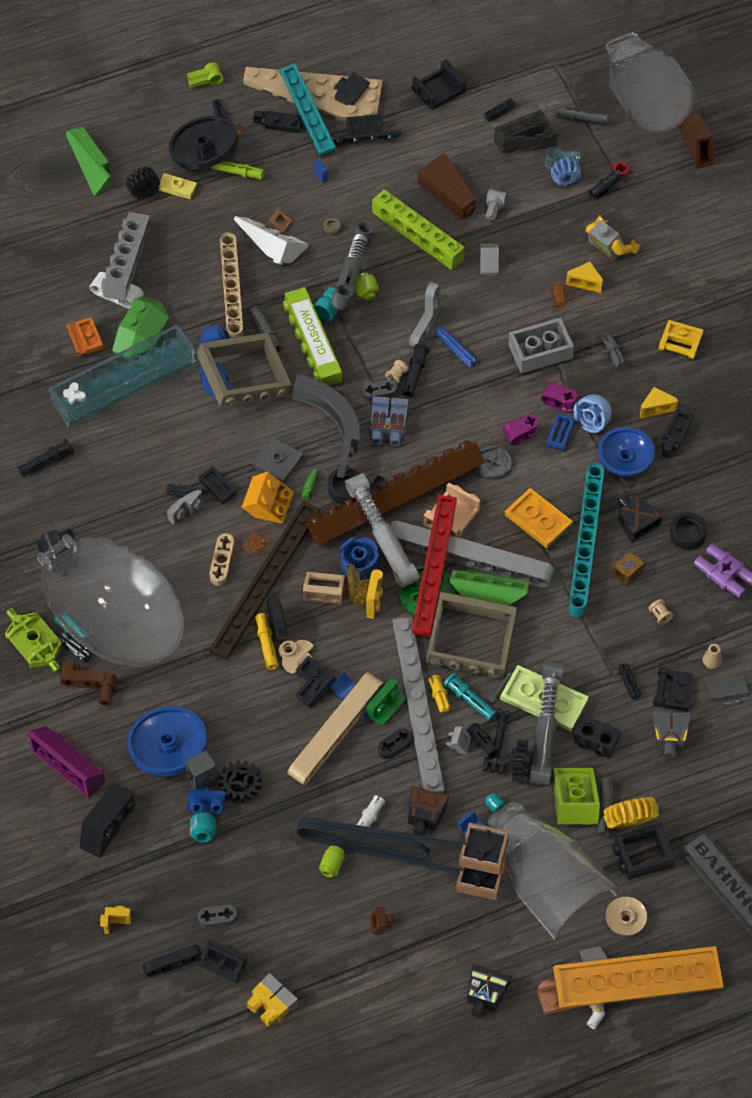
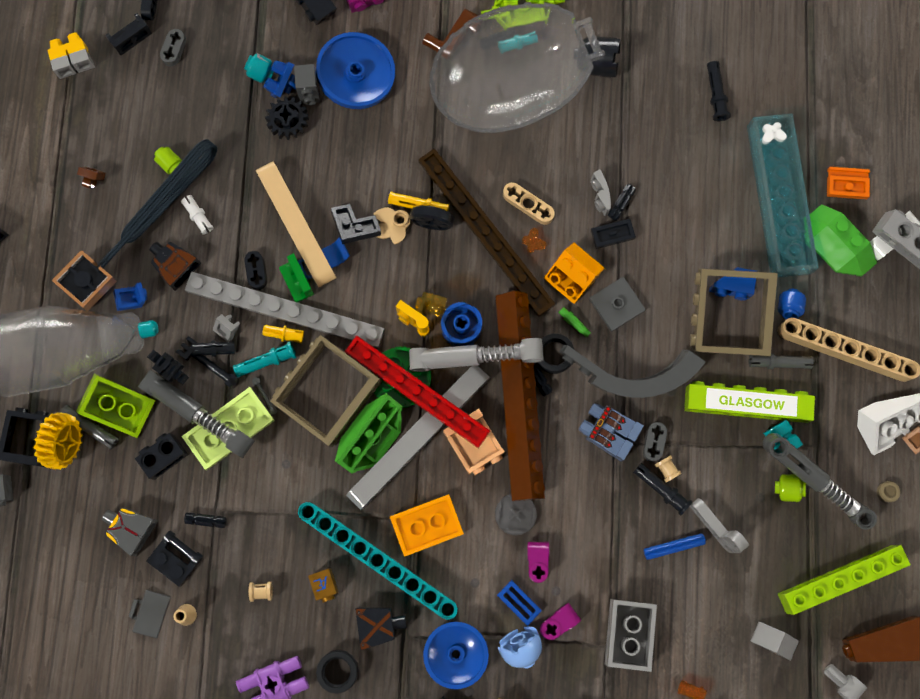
camera: 115 degrees right, 20 degrees up
(323, 593) = (444, 273): tan tile -> none

